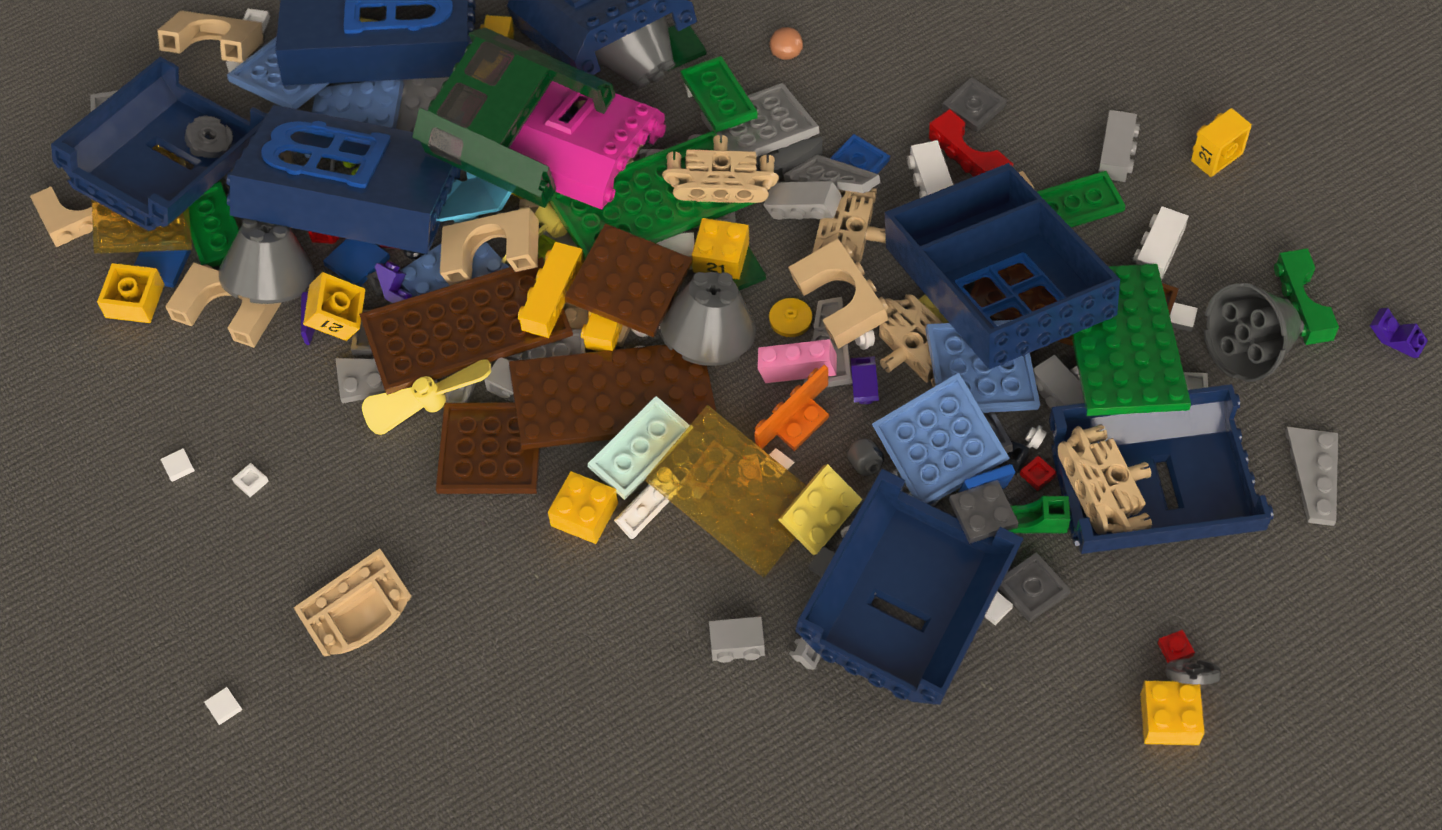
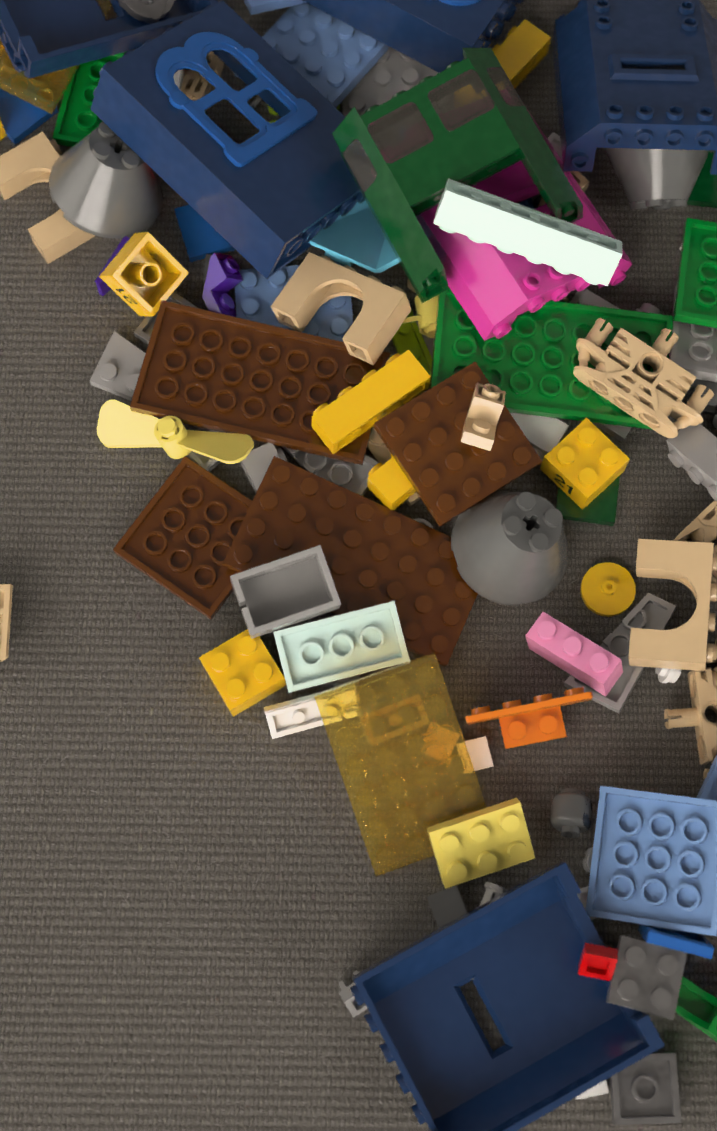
camera: 30 degrees right, 15 degrees up
(579, 430) = (285, 591): none -> light grey piece
(587, 118) = (528, 233): none -> light aqua brick
(634, 248) = (483, 416): none -> tan slope
(737, 639) = (295, 929): light grey brick -> none
(864, 380) = (633, 719): dark purple slope -> none
(946, 519) = (598, 961): none -> red plate

